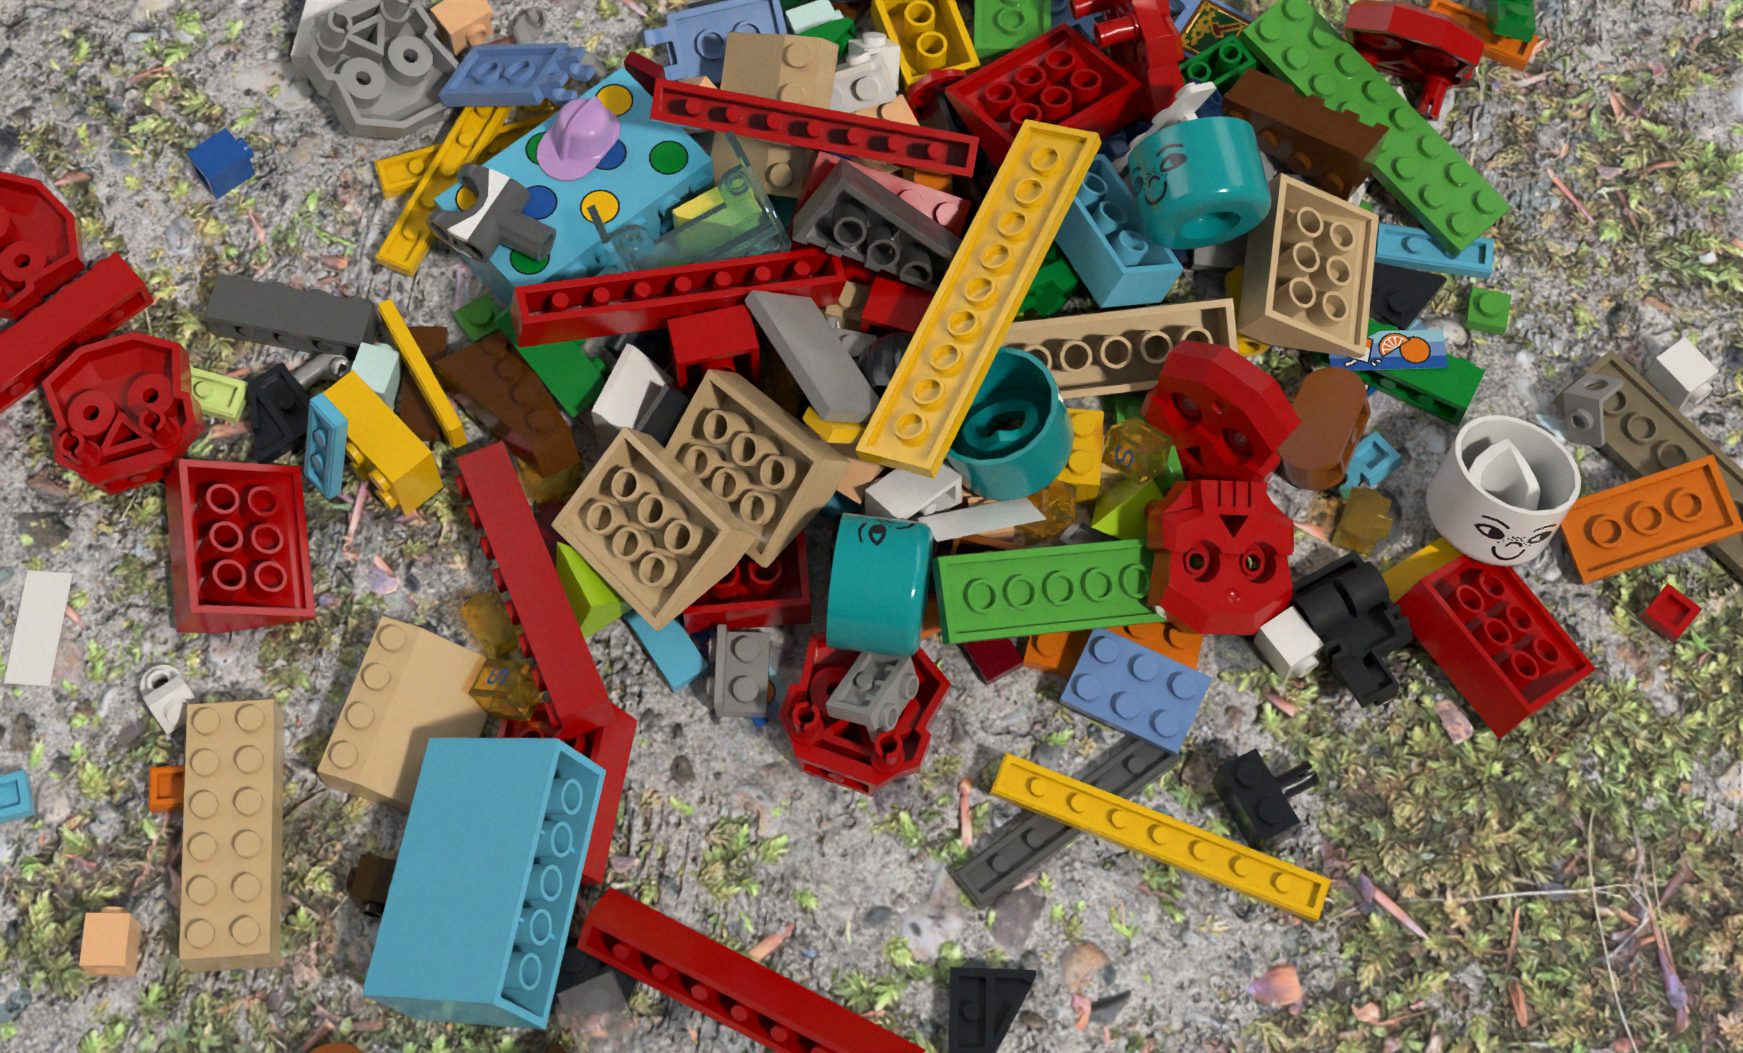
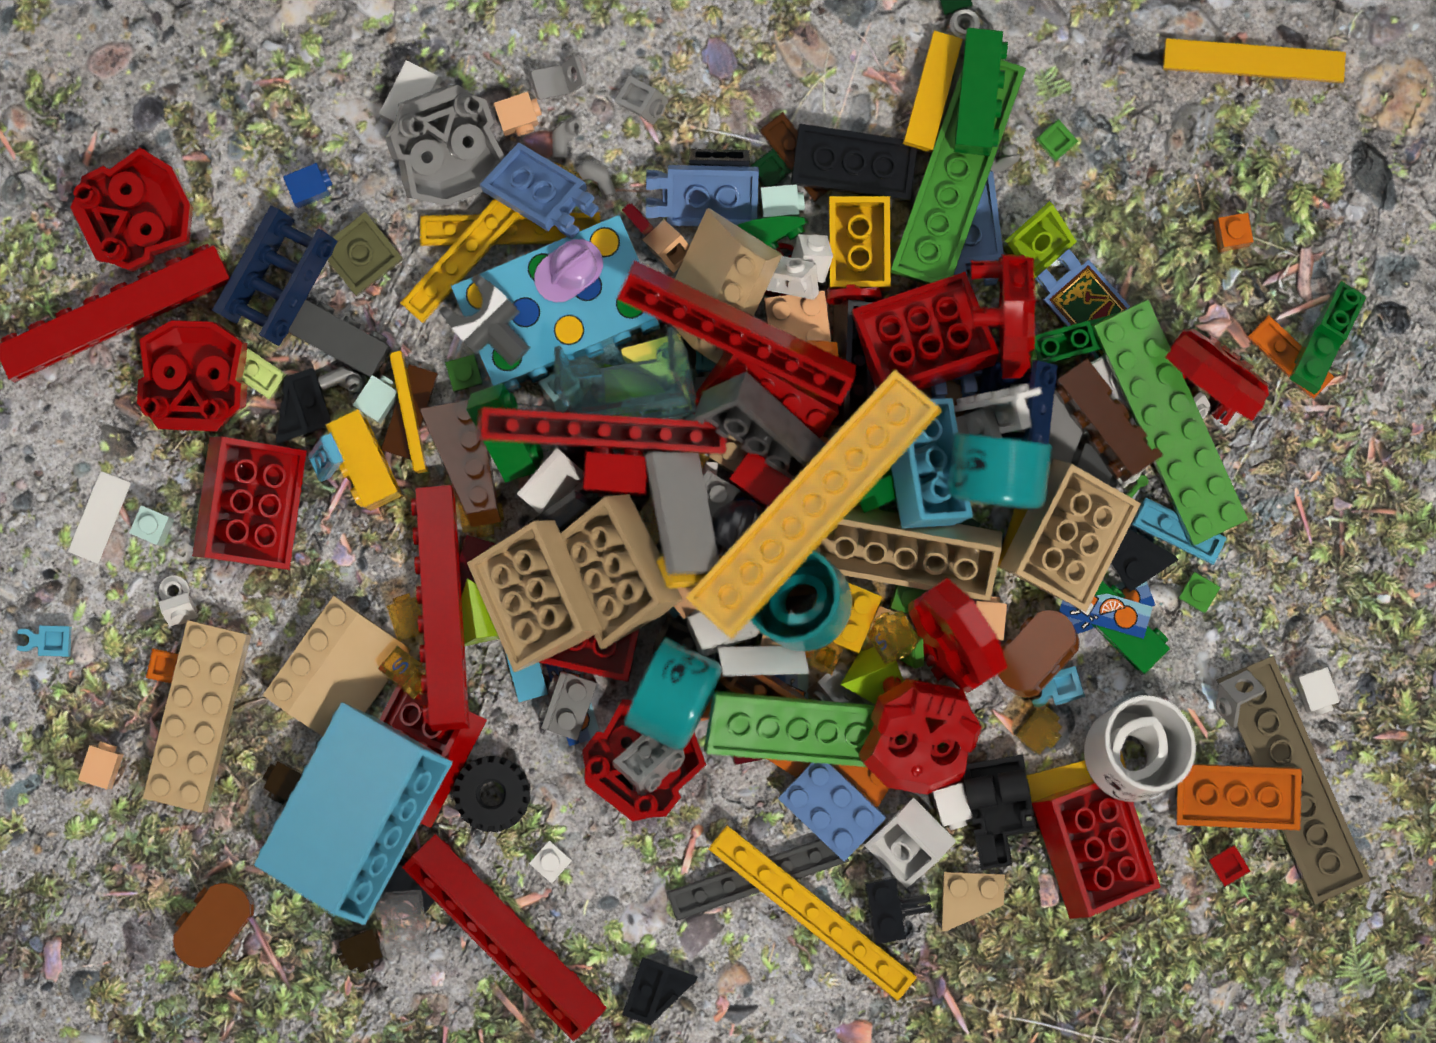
camera: 25 degrees right, 20 degrees up
(111, 609) = (151, 526): none -> light aqua brick
(179, 255) = (254, 264): none -> dark blue fence
(310, 221) = (363, 254): none -> olive plate
(679, 845) = (515, 790): none -> black tyre
(781, 883) = (550, 861): none -> white plate
(1253, 707) = (910, 843): none -> white slope
(1357, 755) = (969, 896): none -> tan wing

